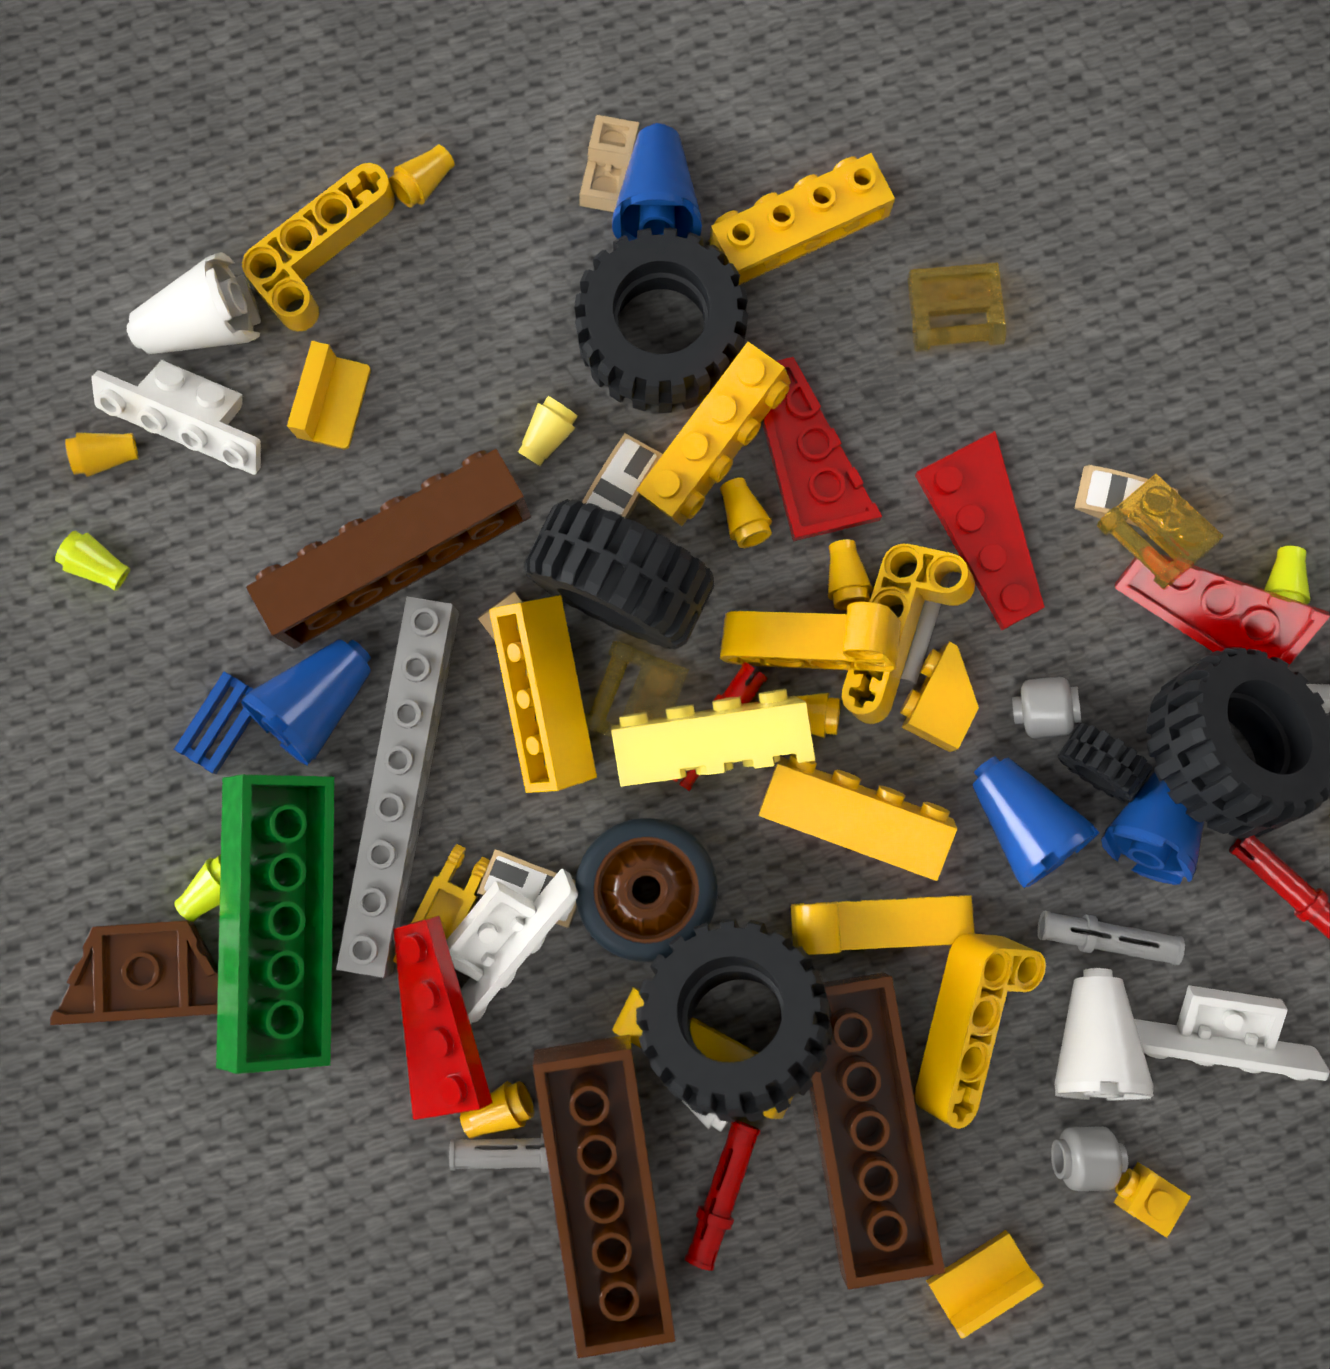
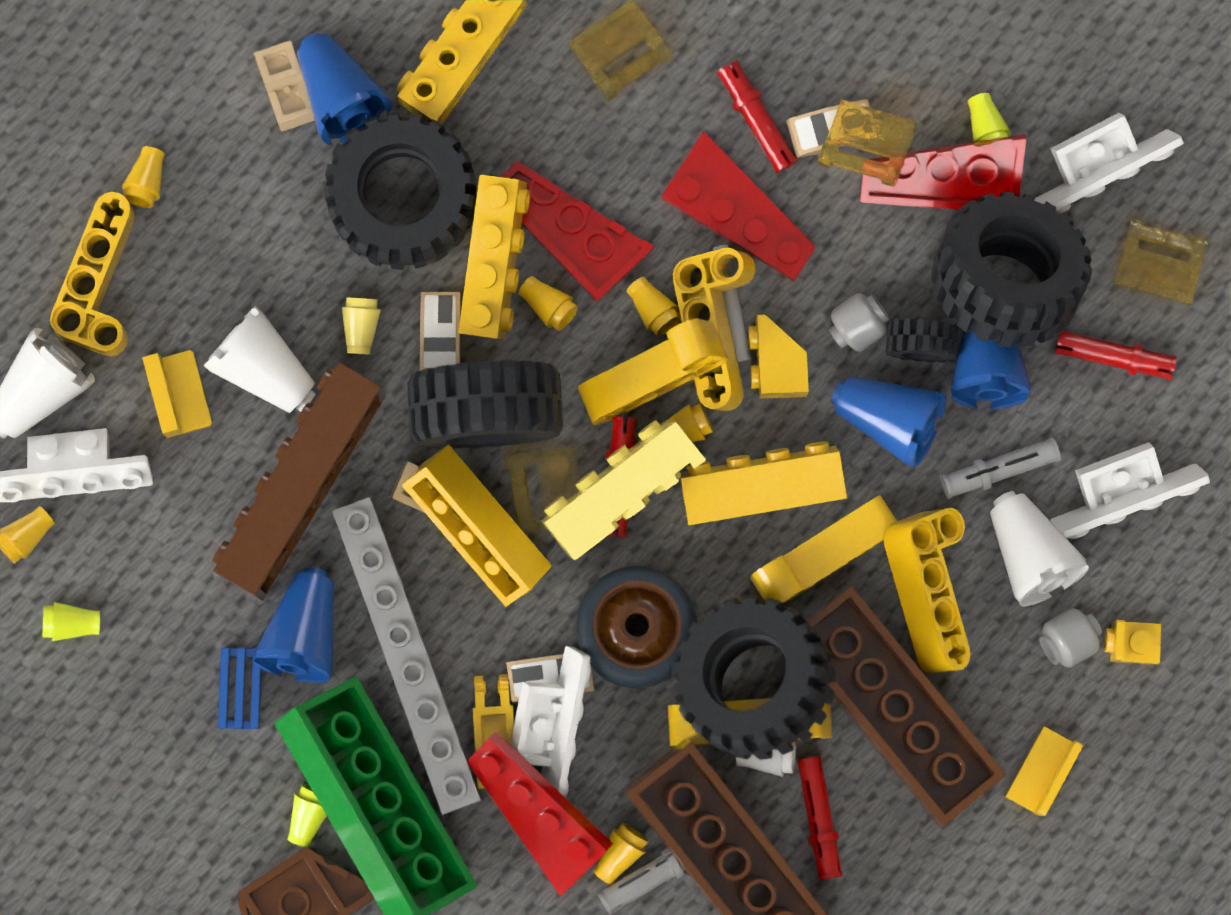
camera: 30 degrees left, 0 degrees up
(425, 410) = (262, 364): none -> white cone
(1056, 445) = (756, 116): none -> red pin

